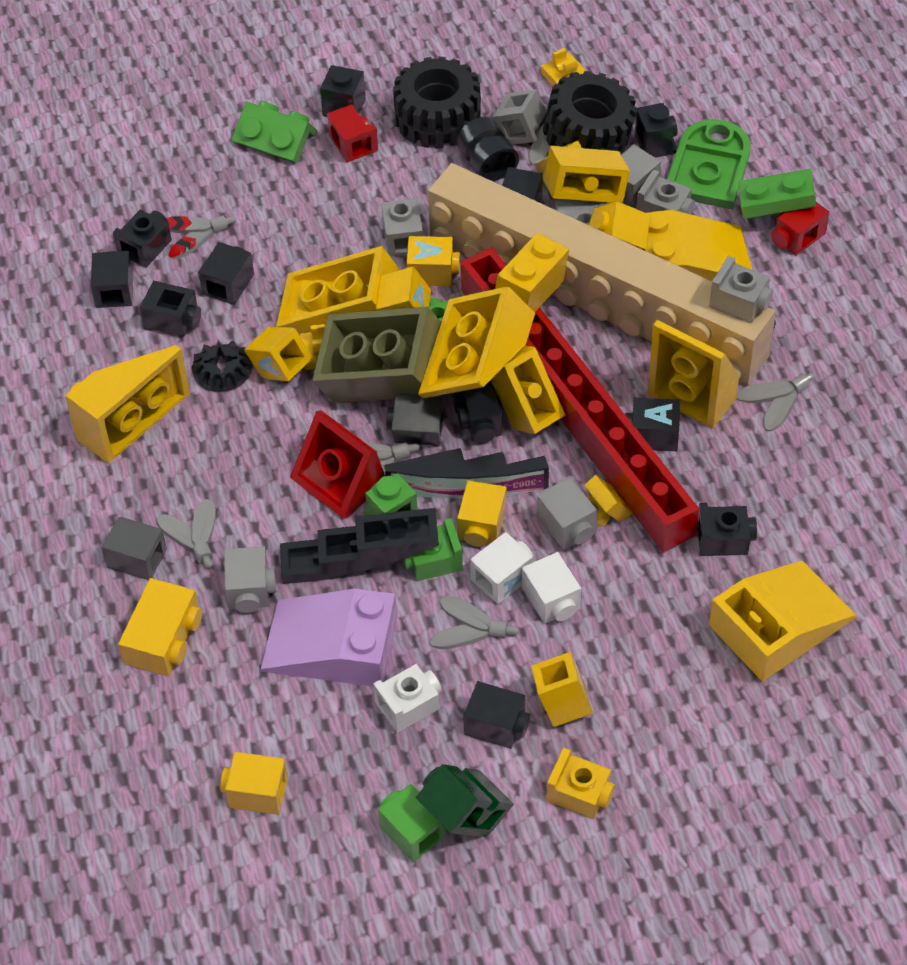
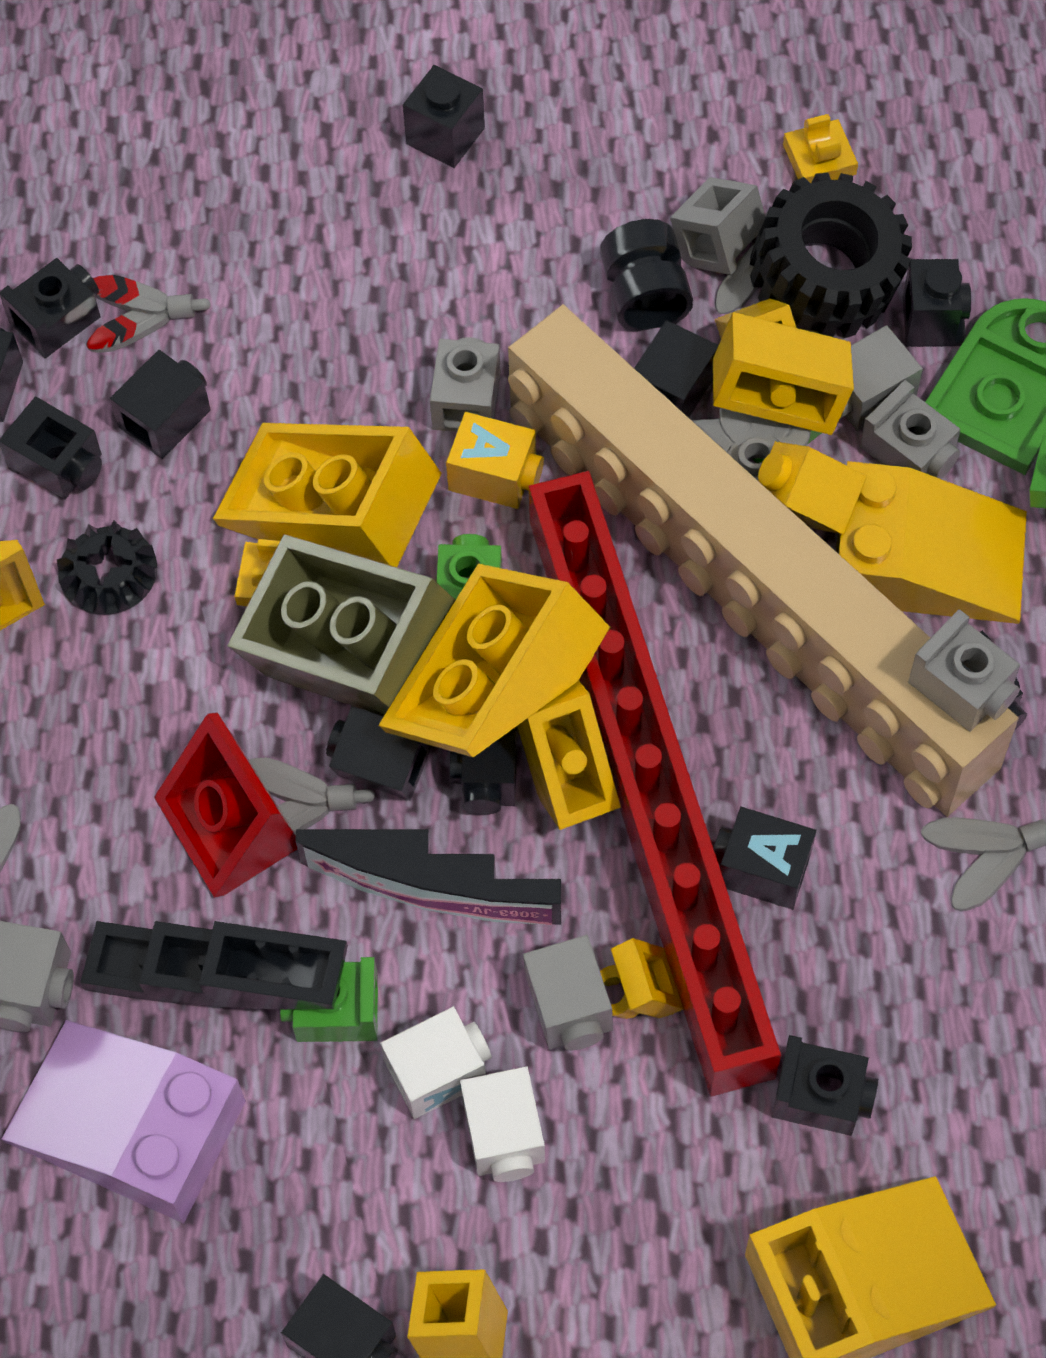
camera: 15 degrees right, 10 degrees up
(273, 132) = (314, 159): bright green bracket -> none
(278, 353) = (195, 575): yellow brick -> none
(352, 133) = (438, 192): red brick -> none
(390, 495) = (289, 890): bright green brick -> none
(402, 290) = (418, 528): yellow brick -> none
(406, 707) = (201, 1284): white brick -> none
(436, 100) = (589, 128): black tyre -> none
(474, 627) = (367, 1149): light grey piece -> none
(481, 513) = (432, 953): yellow brick -> none
(535, 270) = (629, 550): yellow brick -> none
(691, 372) = (847, 792): yellow slope -> none

